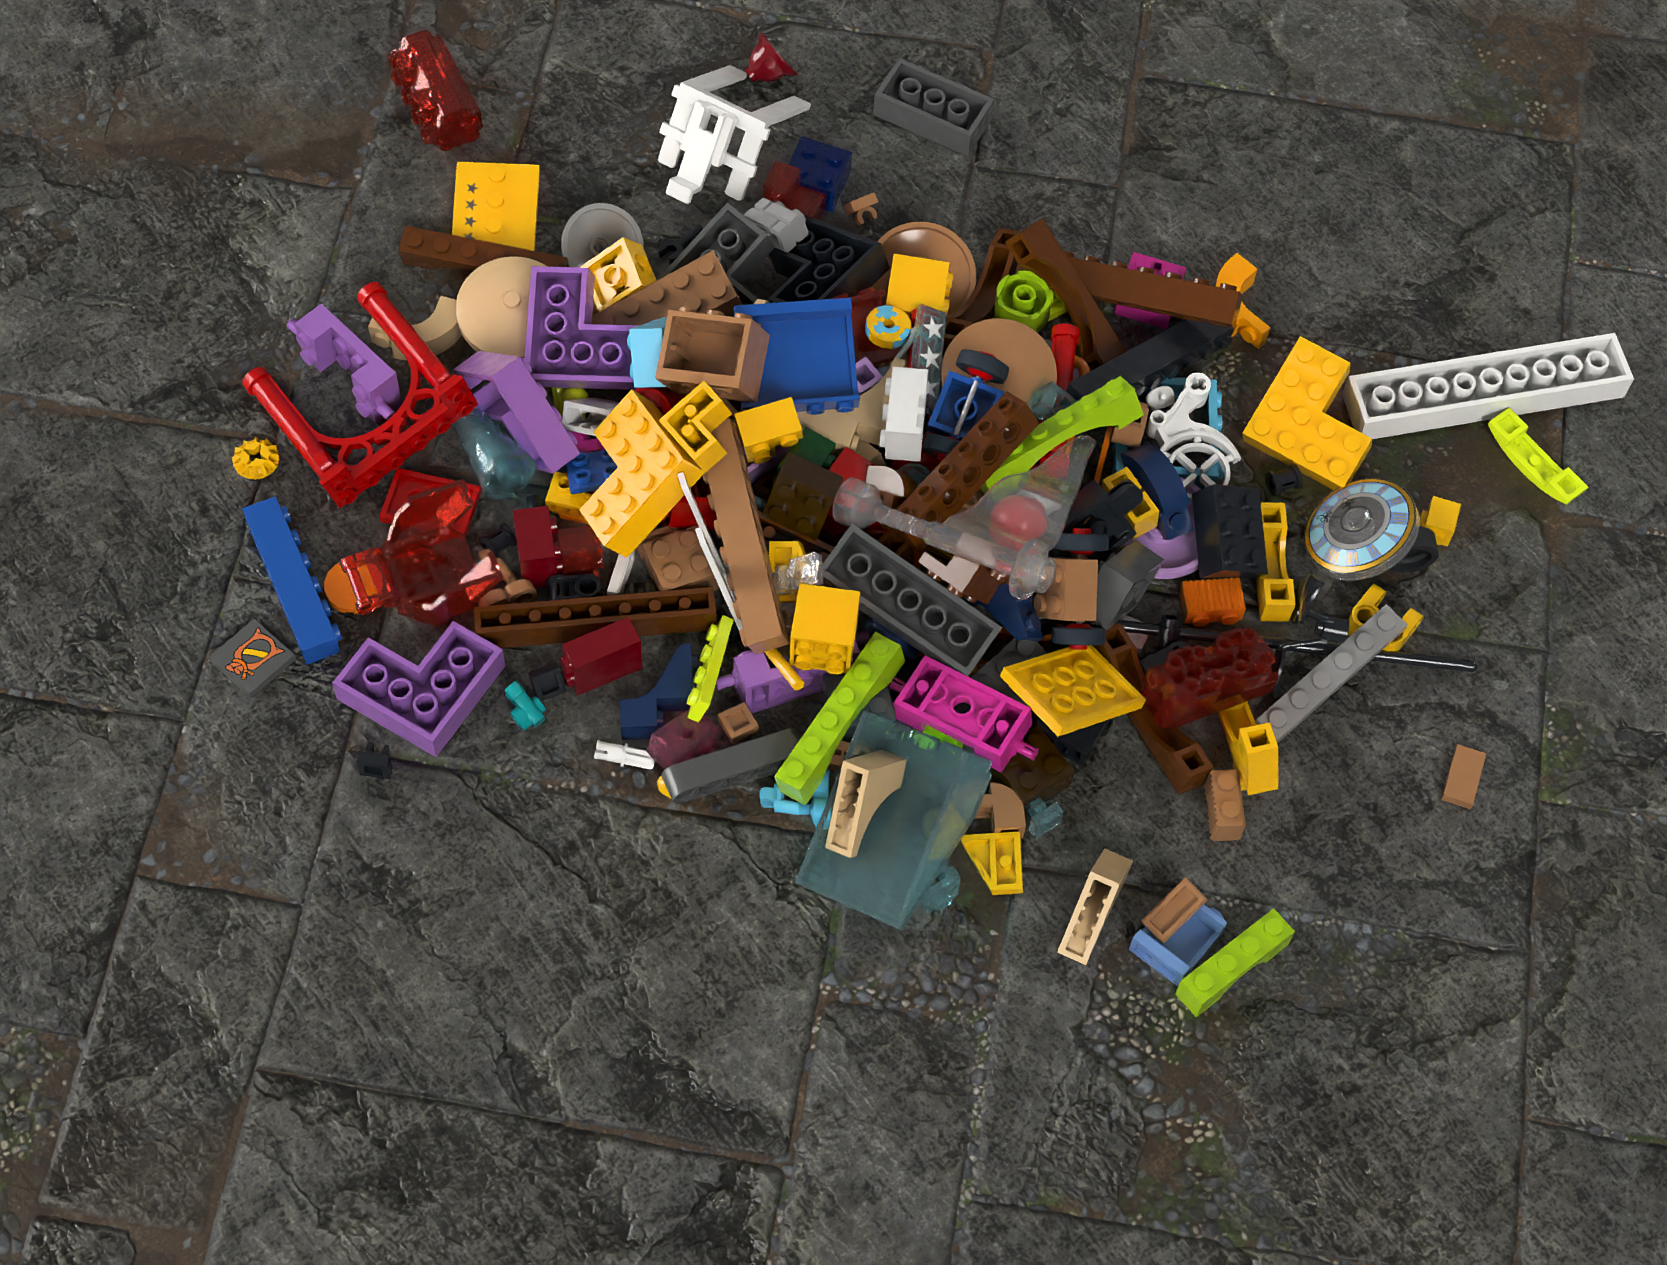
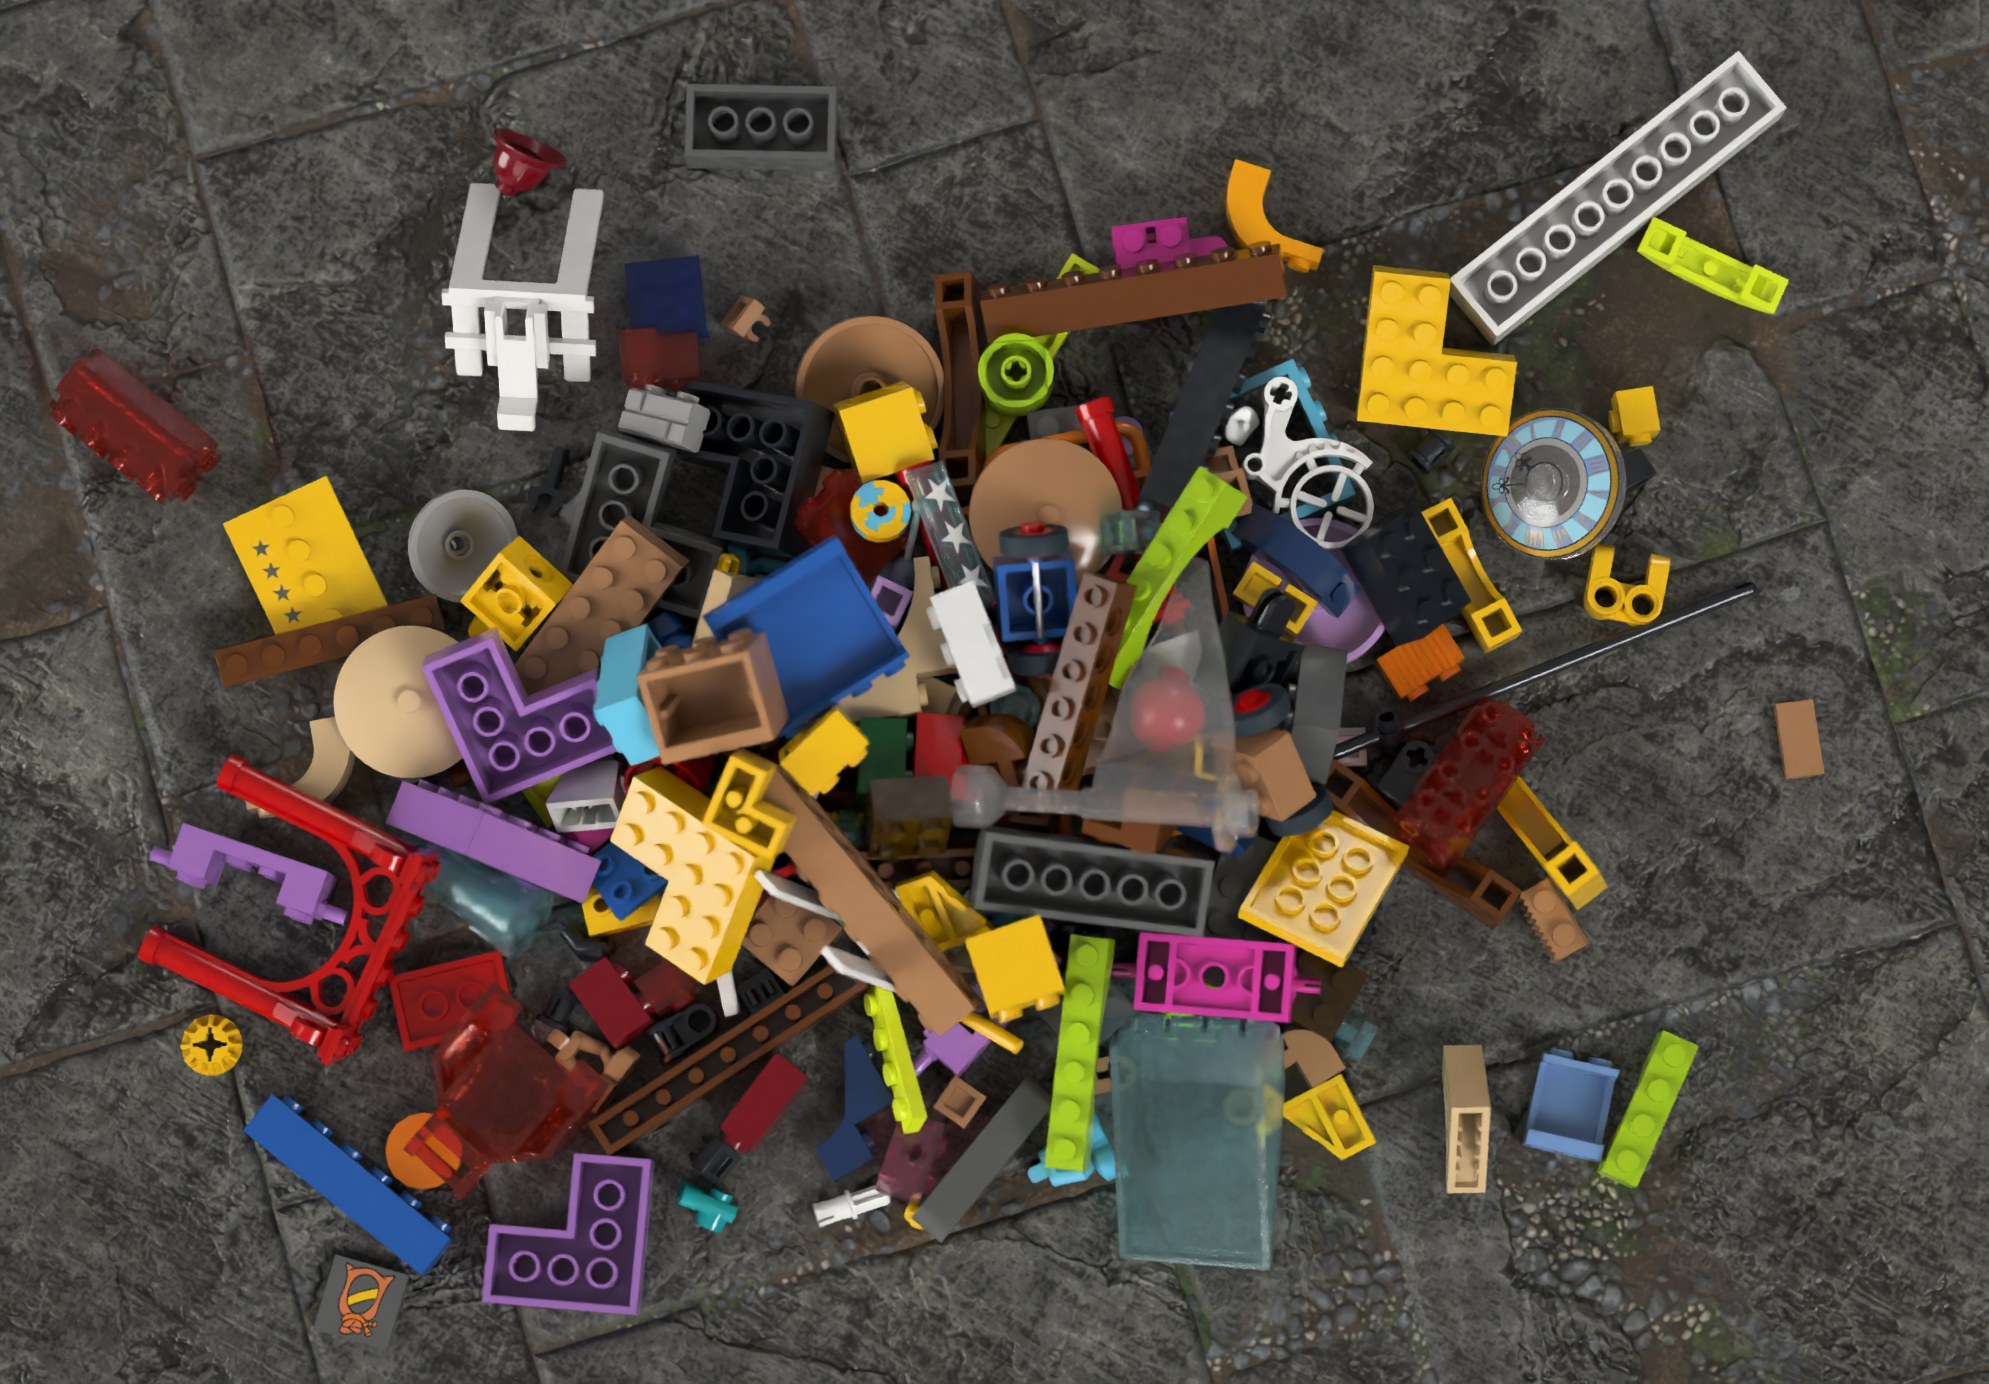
camera: 20 degrees left, 20 degrees up
(375, 764) = (578, 1362): black tile -> none
(803, 570) = (955, 922): clear plate -> none
(860, 791) = (1147, 1129): tan arch -> none
(941, 894) = (1289, 1194): clear light blue bracket -> none
(1041, 254) = (1135, 387): reddish brown arch -> none
(1174, 910) = (1556, 1085): medium nougat tile -> none
(1326, 626) = (1568, 643): black plant -> none
(1333, 672) = (1598, 691): light grey plate -> none

